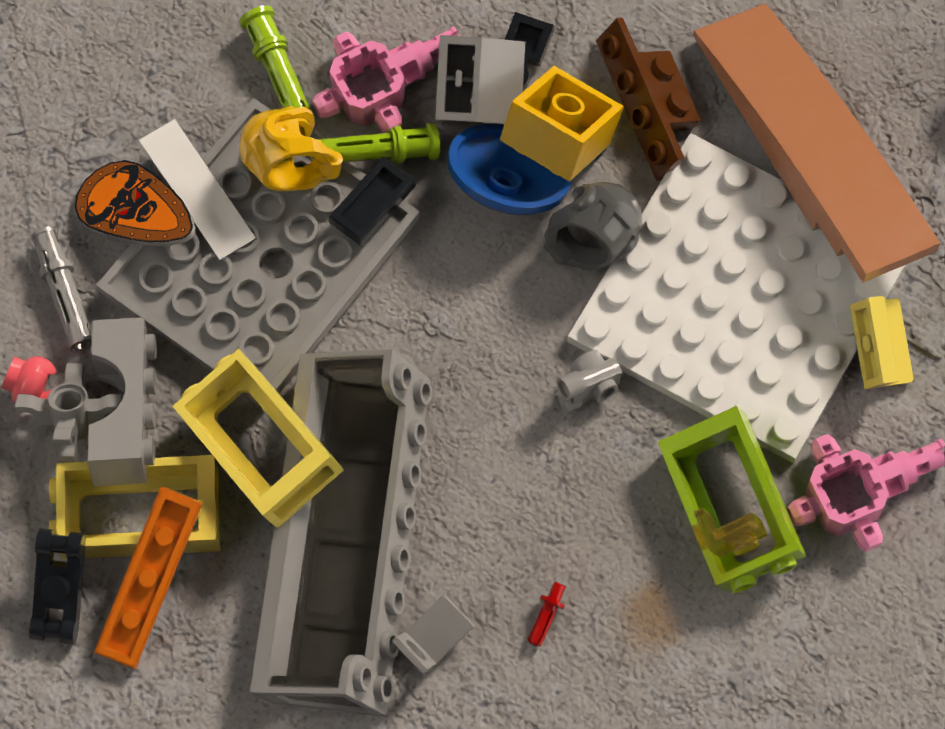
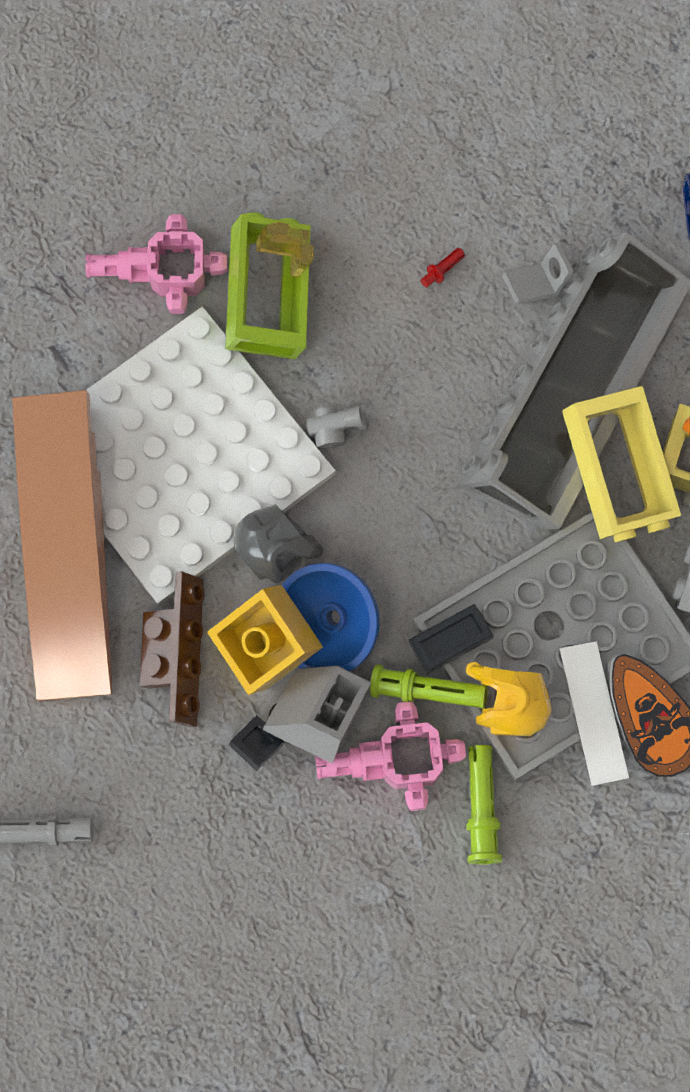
camera: 160 degrees left, 5 degrees up
(881, 342) = (93, 360): light yellow panel -> none

